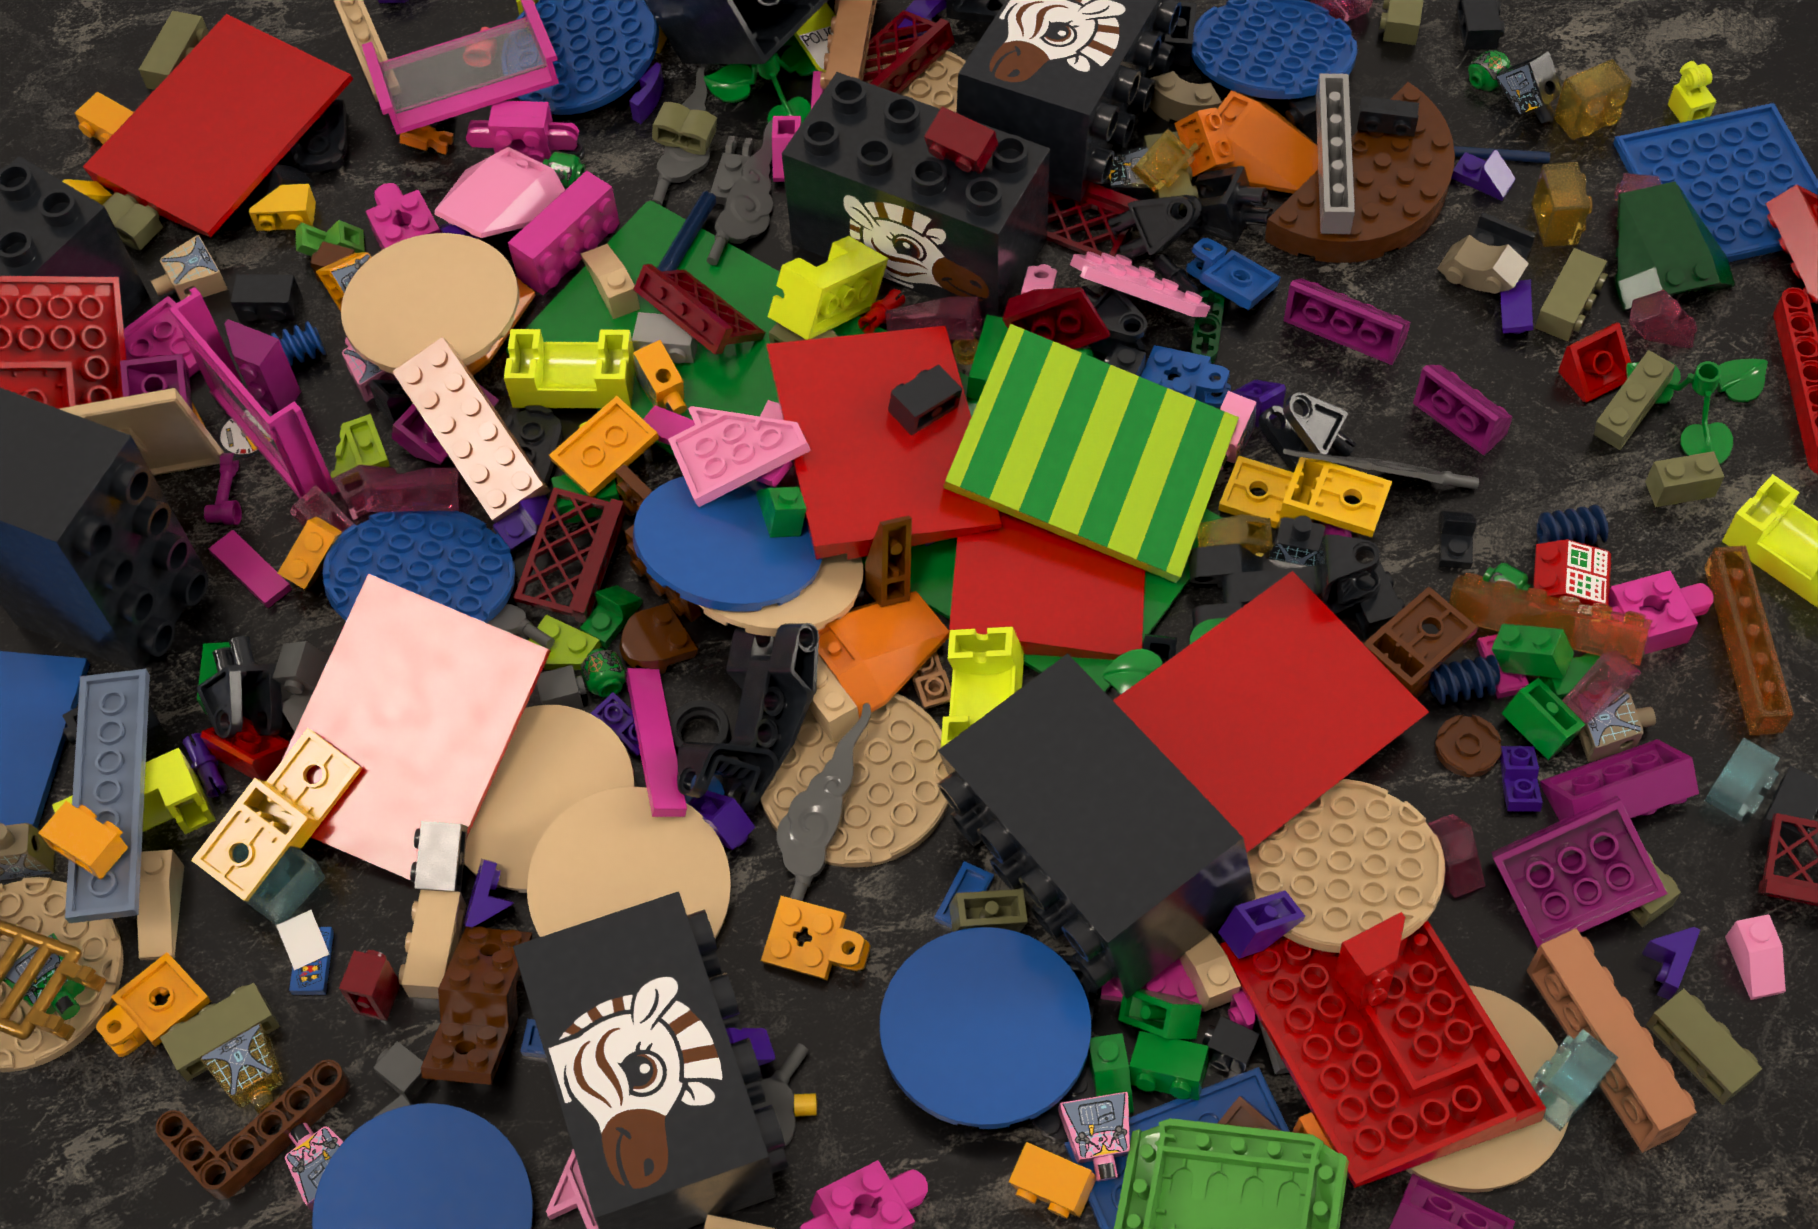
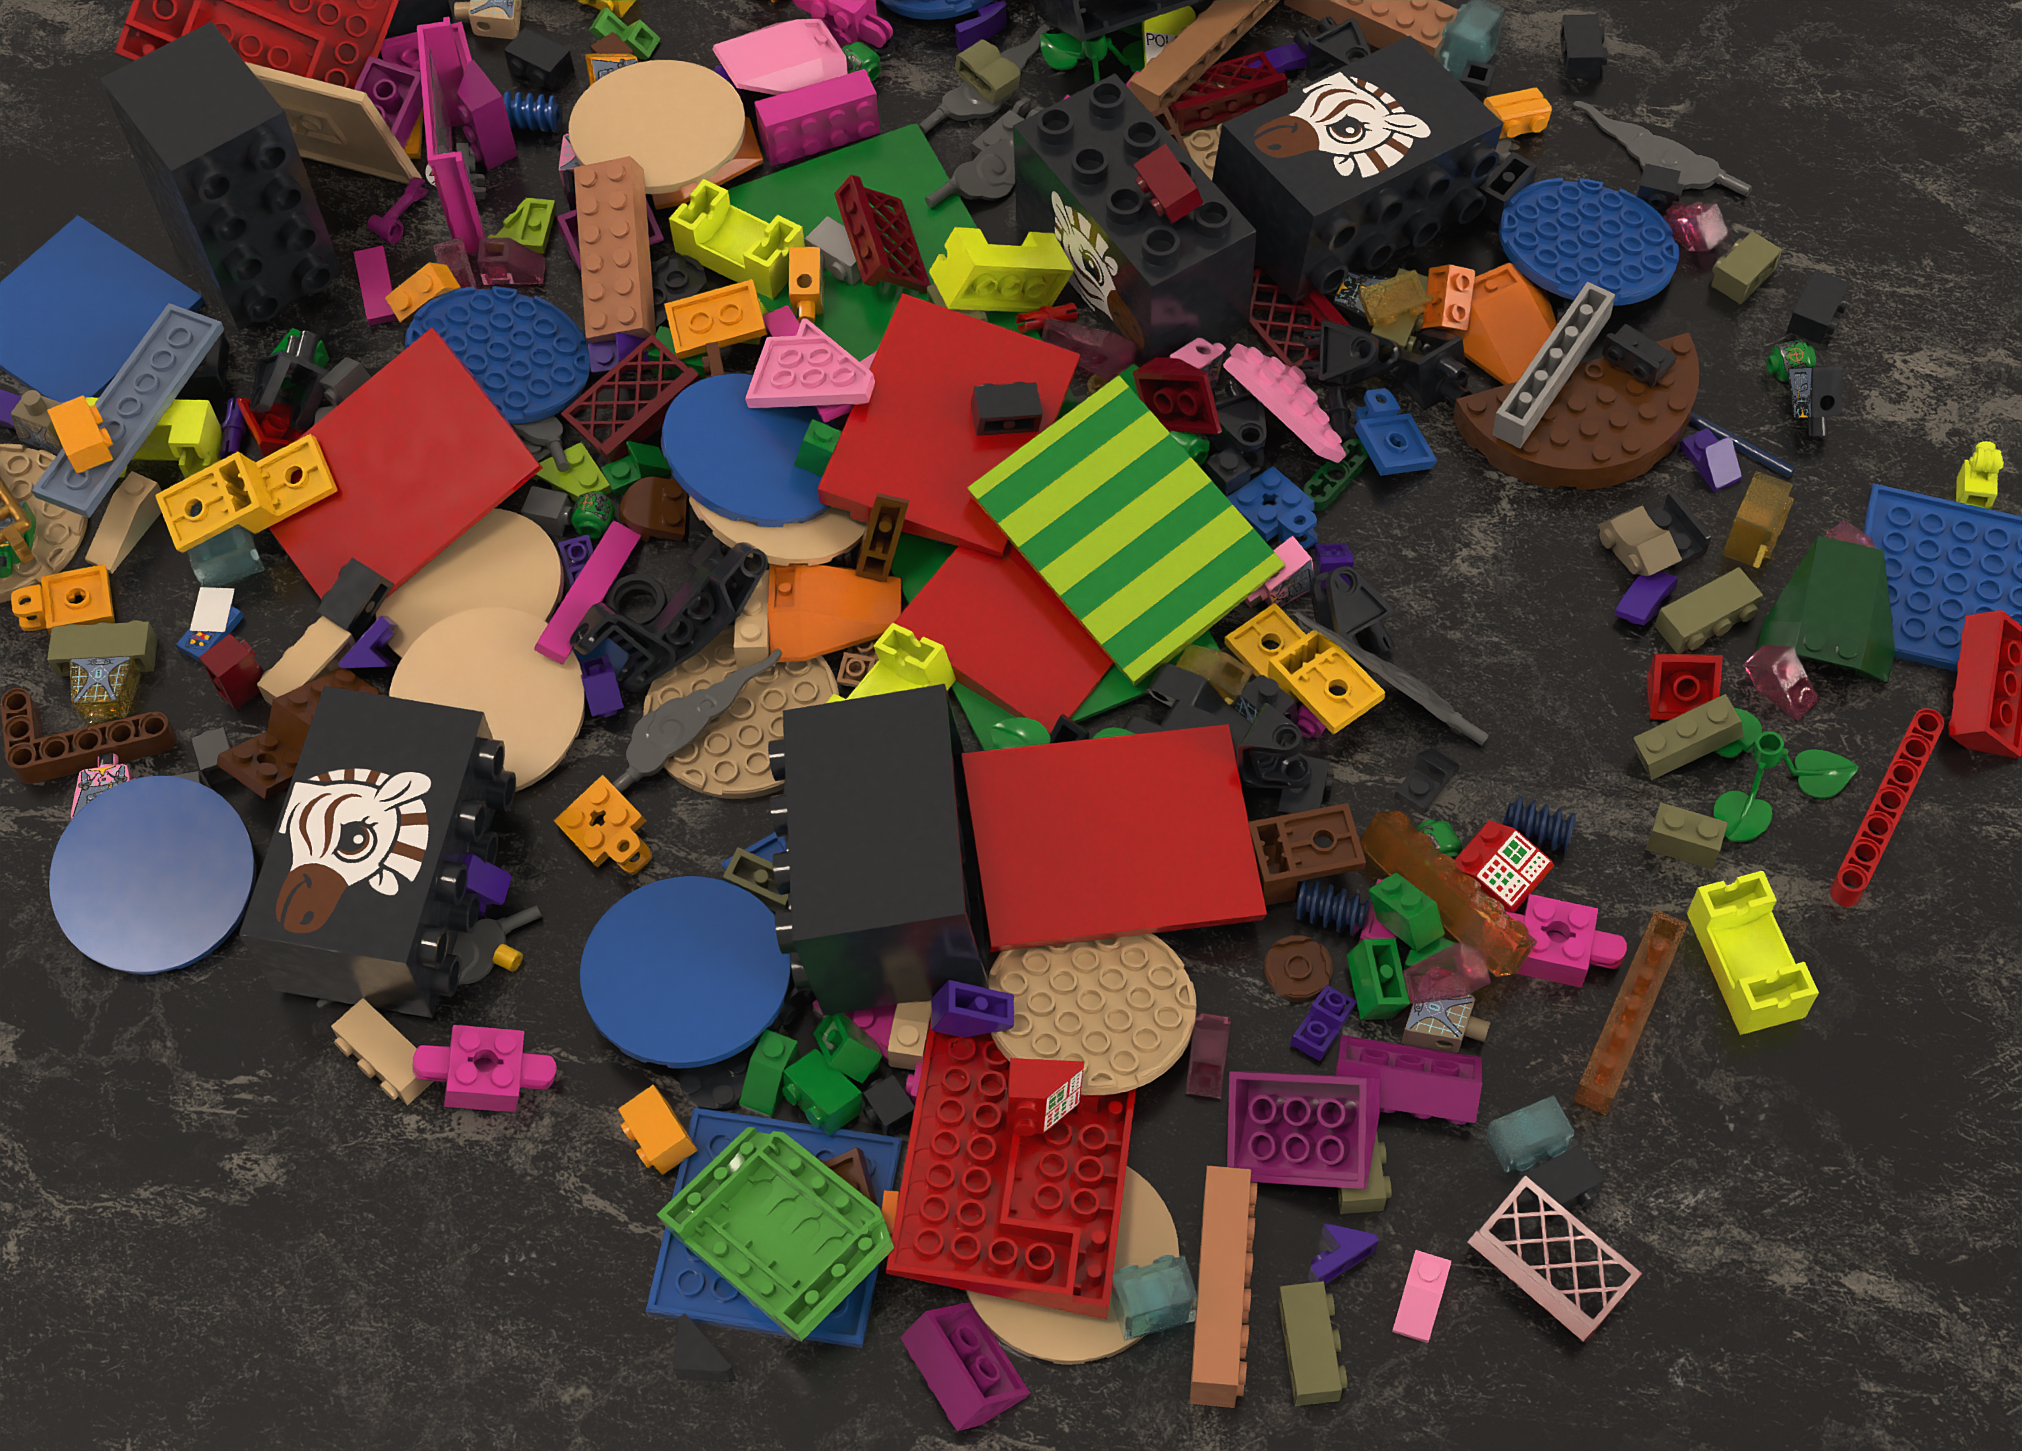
camera: 30 degrees right, 0 degrees up
(399, 216) = (691, 38): dark pink brick -> none
(414, 491) = (540, 282): clear pink slope -> none
(611, 280) = (827, 176): tan slope -> none
(688, 232) = (925, 167): dark blue axle -> none
(1098, 1131) = (720, 1109): torso -> none
(1178, 98) = (1461, 248): dark tan brick -> none
(1345, 320) = (1468, 528): magenta slope -> none
(1461, 408) = (1518, 662): magenta slope -> none
(1592, 99) = (1868, 435): clear yellow brick -> none

